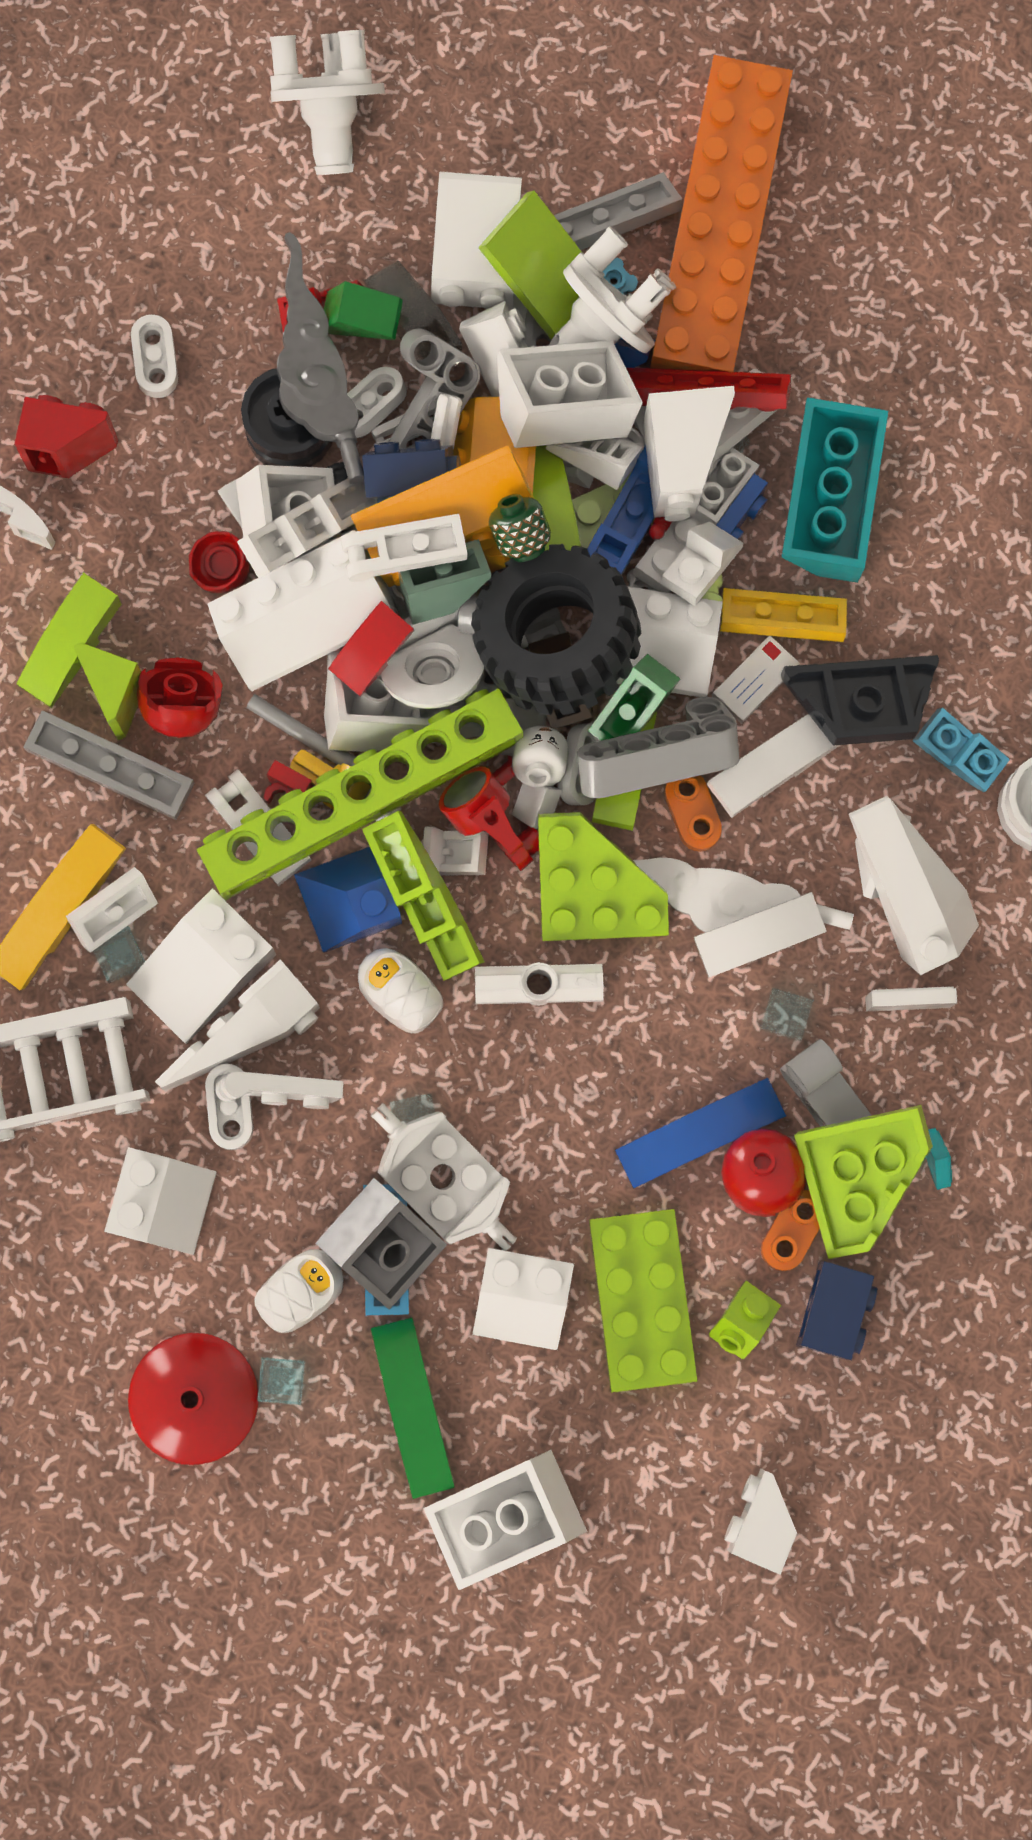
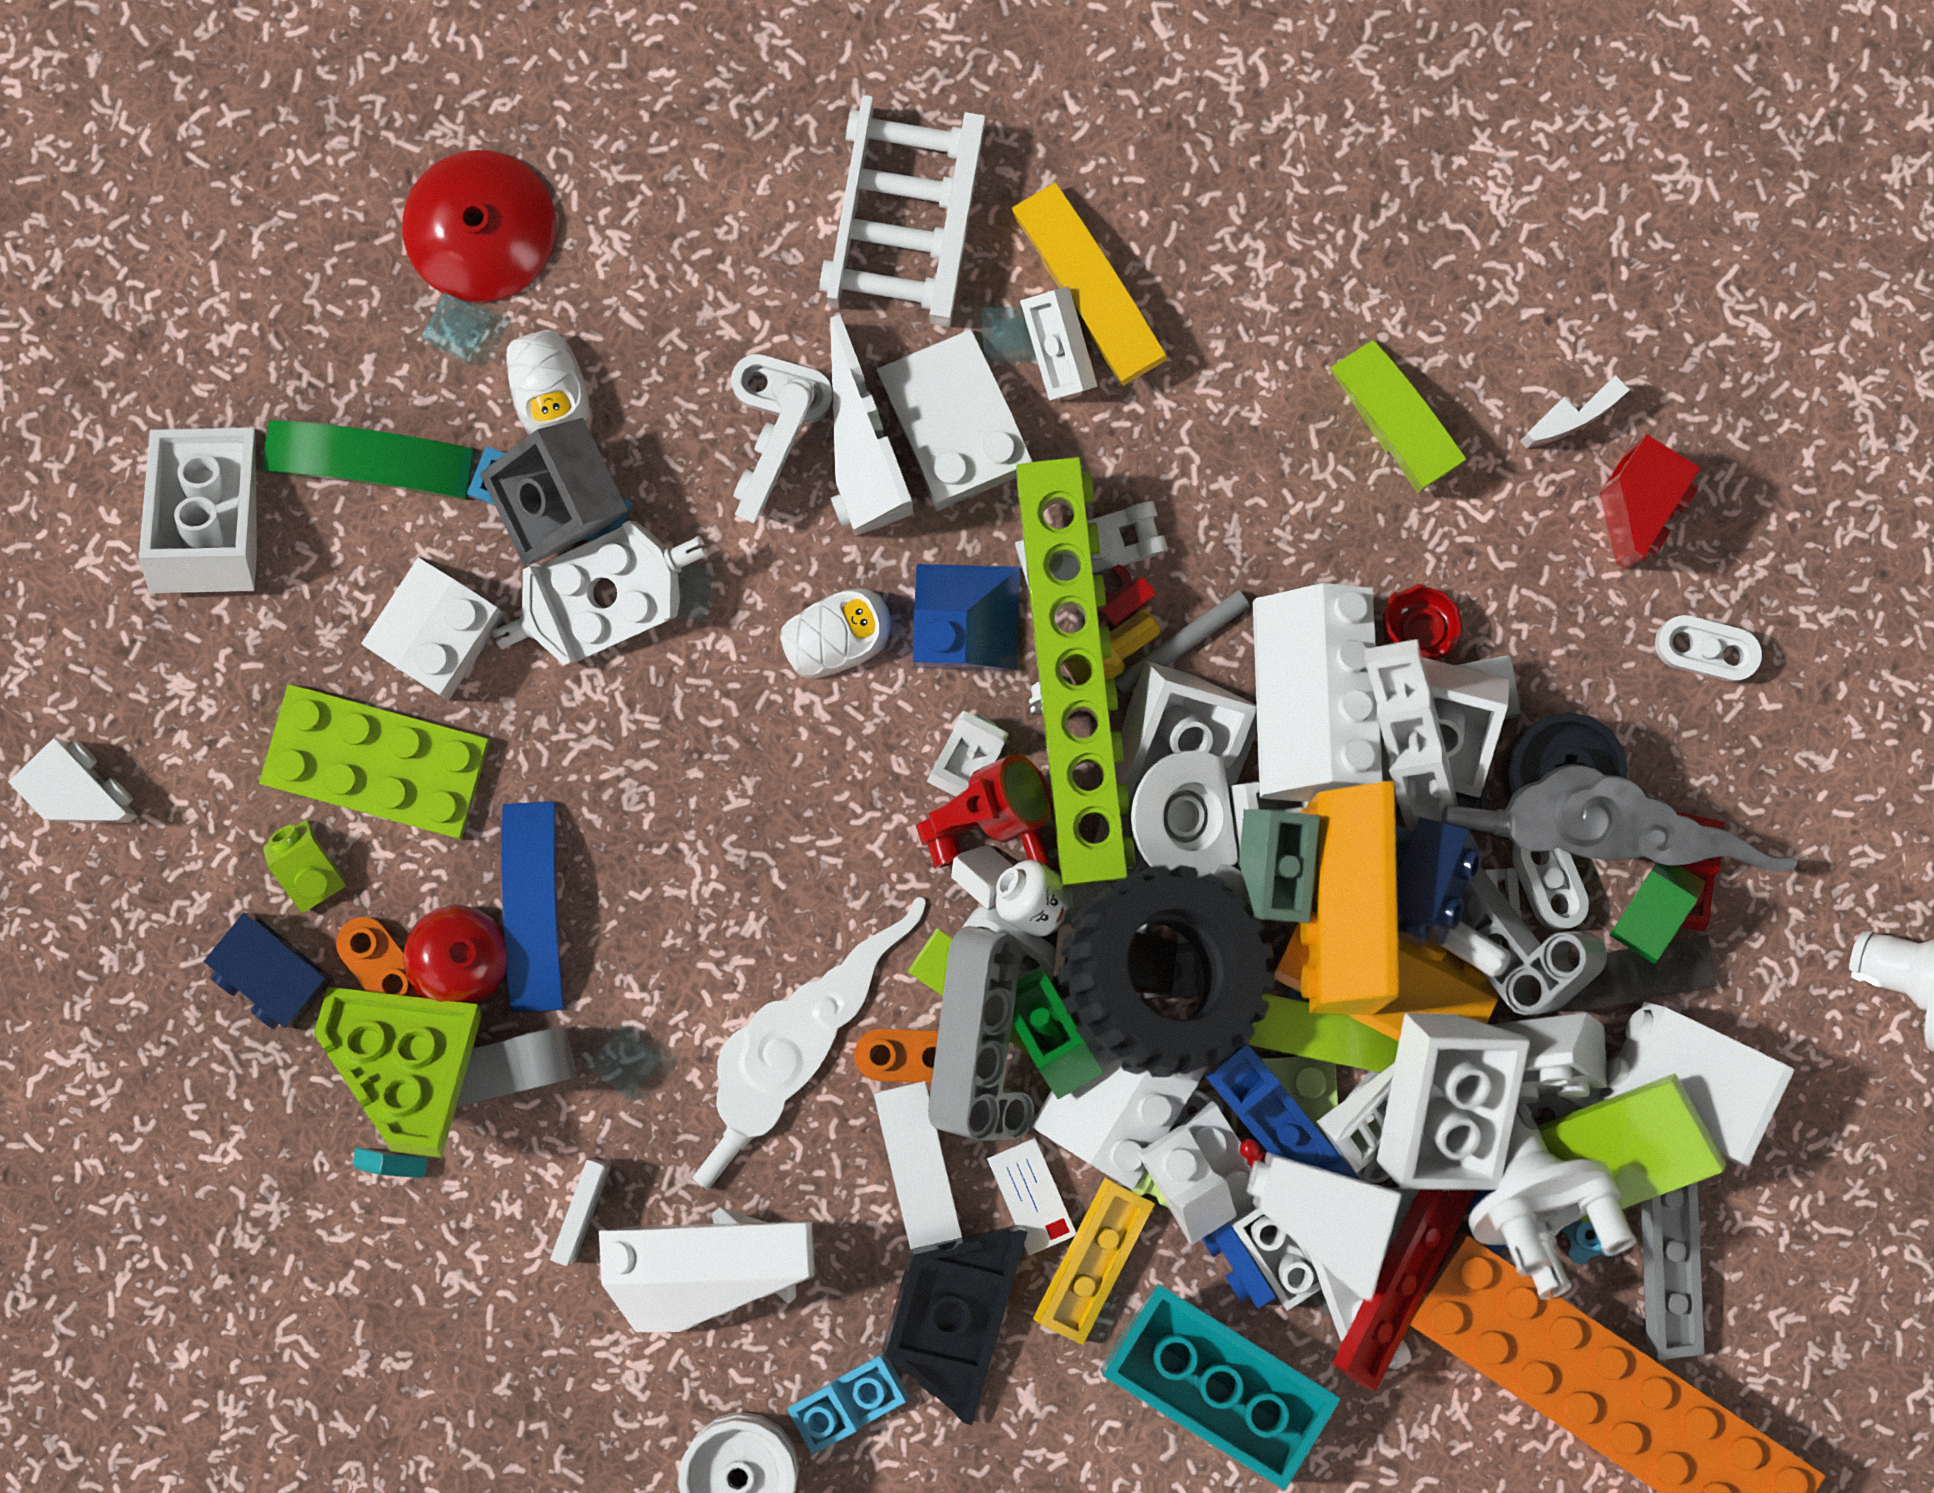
camera: 120 degrees right, 5 degrees up
(109, 765) = (1231, 406): light grey plate -> none
(114, 685) = (1315, 439): lime slope -> none
(160, 1201) = (707, 271): white slope -> none
(179, 697) = (1275, 513): red cylinder -> none
(370, 648) = (1235, 750): red slope -> none
(405, 547) = (1328, 829): white plate -> none
(423, 894) = (928, 700): lime slope -> none
(520, 527) = (1296, 971): dark green head -> none
(567, 983) = (786, 757): white piece -> none
(593, 886) = (862, 900): lime plate -> none
(759, 934) = (724, 1065): white slope -> none

